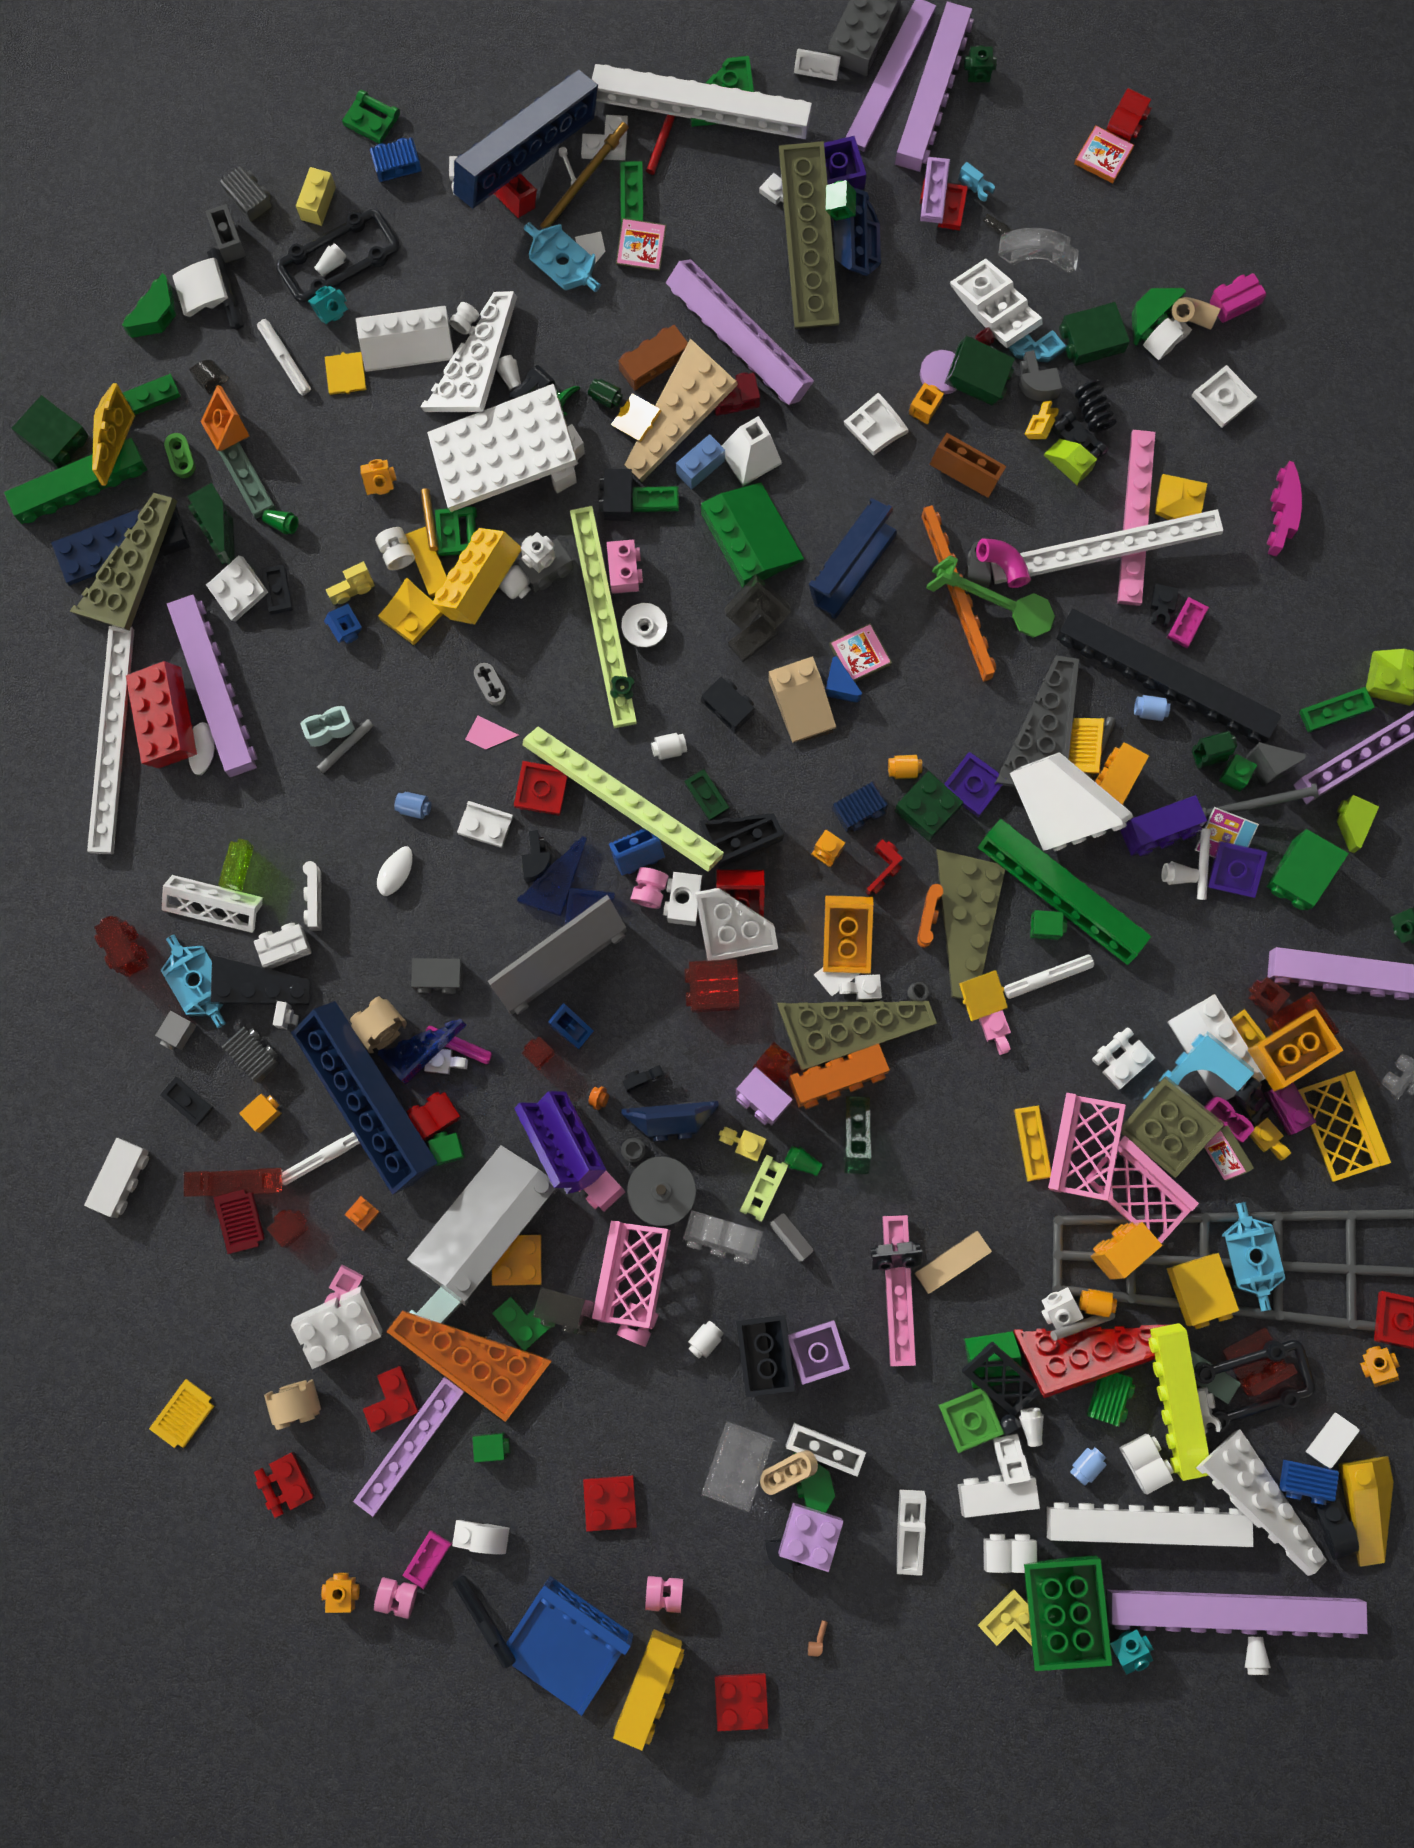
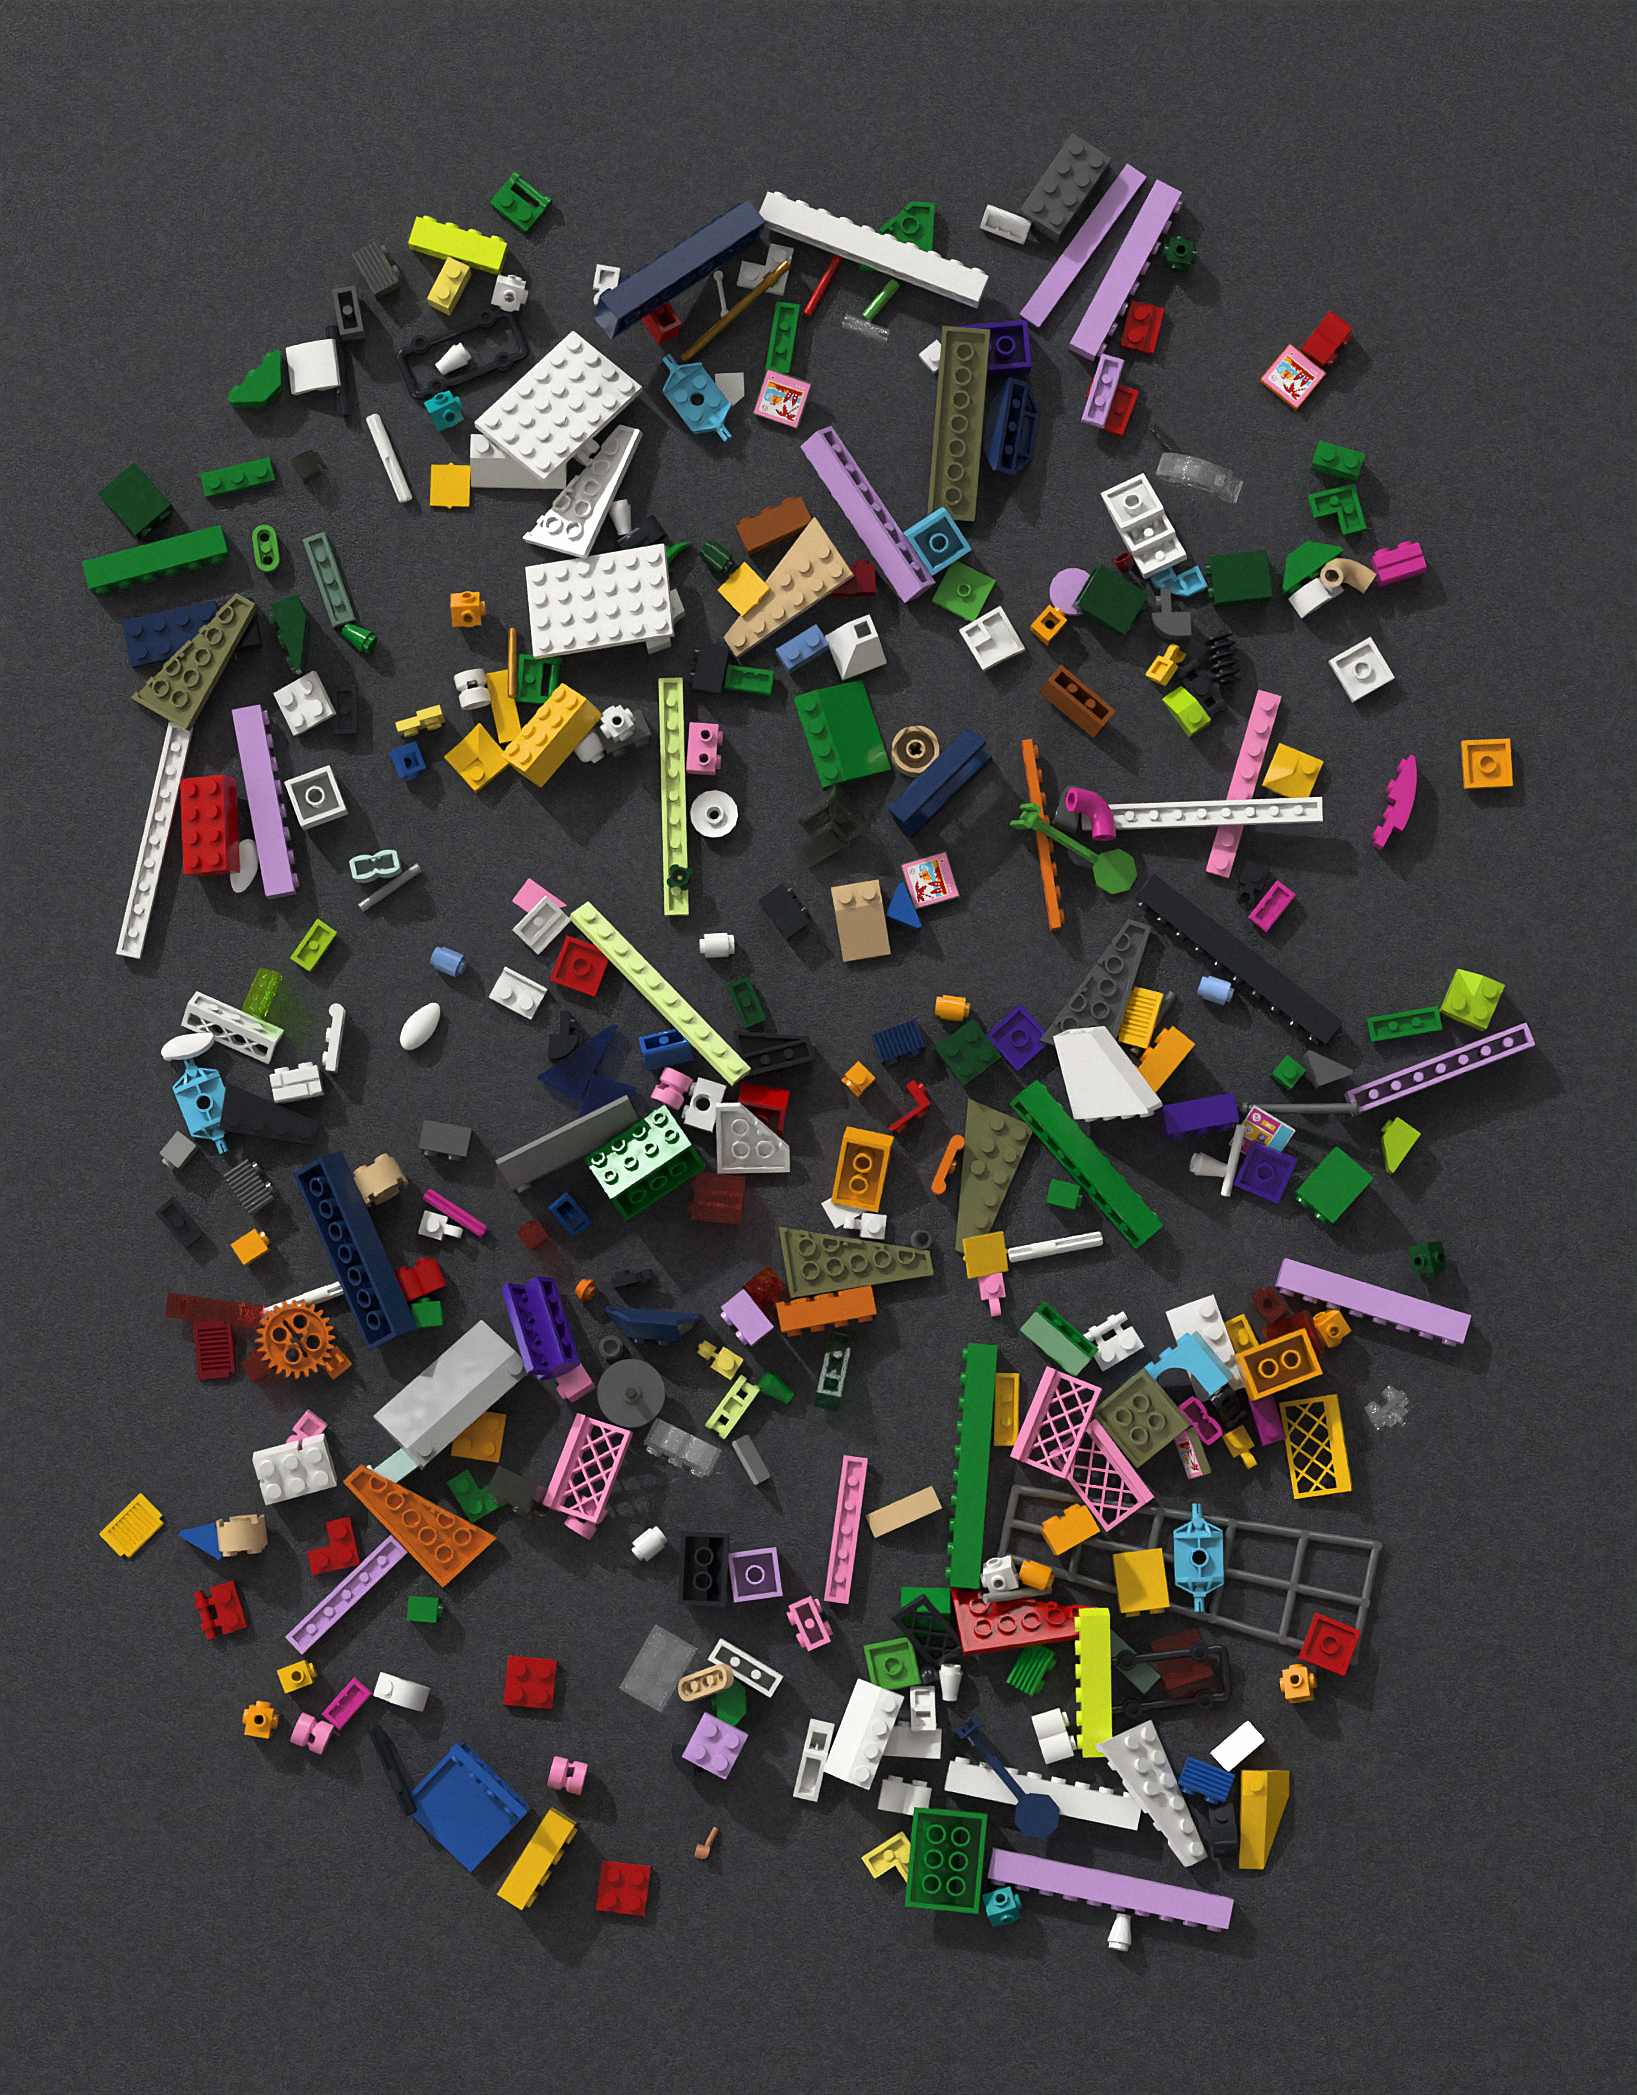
camera: 10 degrees right, 5 degrees up
(111, 426) = (202, 508): yellow wedge -> none
(117, 1178) = (102, 1287): white brick -> none
(121, 946) = (136, 1052): clear red brick -> none
(170, 928) = (187, 1046): none -> white arm
(223, 421) = (316, 522): orange slope -> none
(255, 1414) = (205, 1538): none -> blue slope
(260, 672) = (316, 797): none -> white brick
(279, 812) = (314, 945): none -> lime plate
(284, 1015) = (289, 1156): white plate -> none
(296, 157) = (463, 246): none -> neon yellow brick
(335, 1182) = (276, 1351): none -> orange gear
(364, 196) = (509, 293): none -> white brick
(371, 1540) = (297, 1676): none -> yellow brick
(395, 159) = (539, 257): blue brick -> none
(416, 1052) = (413, 1214): clear blue wing -> none
(433, 281) = (558, 407): none -> white plate
(485, 686) = (540, 849): light grey beam -> none
(497, 755) = (541, 924): none -> white plate
(636, 961) = (645, 1162): none -> green brick
(706, 173) = (865, 328): none -> clear pin
(715, 148) = (881, 299): none -> bright green piece
(809, 342) = (937, 541): none -> medium azure brick
(815, 526) = (912, 738): none -> tan brick
(840, 200) = (997, 394): brick -> none
(840, 388) = (963, 591): none -> bright green plate
(885, 1398) = (812, 1629): none -> bright pink brick
(907, 1256) = (859, 1497): black hinge -> none
(958, 134) = (1142, 327): none -> red plate
(959, 1497) = (863, 1734): none -> white slope
(974, 180) = (1145, 383): medium azure plate -> none
(1012, 1206) = (973, 1465): none -> green brick
(1072, 1065) = (1059, 1339): none -> brick
(1088, 1466) = (996, 1728): light blue brick -> none
(1148, 1548) = (1035, 1813): none -> dark blue piece
(1162, 217) = (1337, 461): none -> green brick
(1173, 253) = (1342, 502): none -> green plate
(1207, 1403) = (1119, 1690): white plate -> none
(1214, 749) = (1267, 1046): dark green brick -> none
(1336, 1005) = (1331, 1327): none -> light orange brick
(1359, 460) = (1486, 763): none -> light orange plate

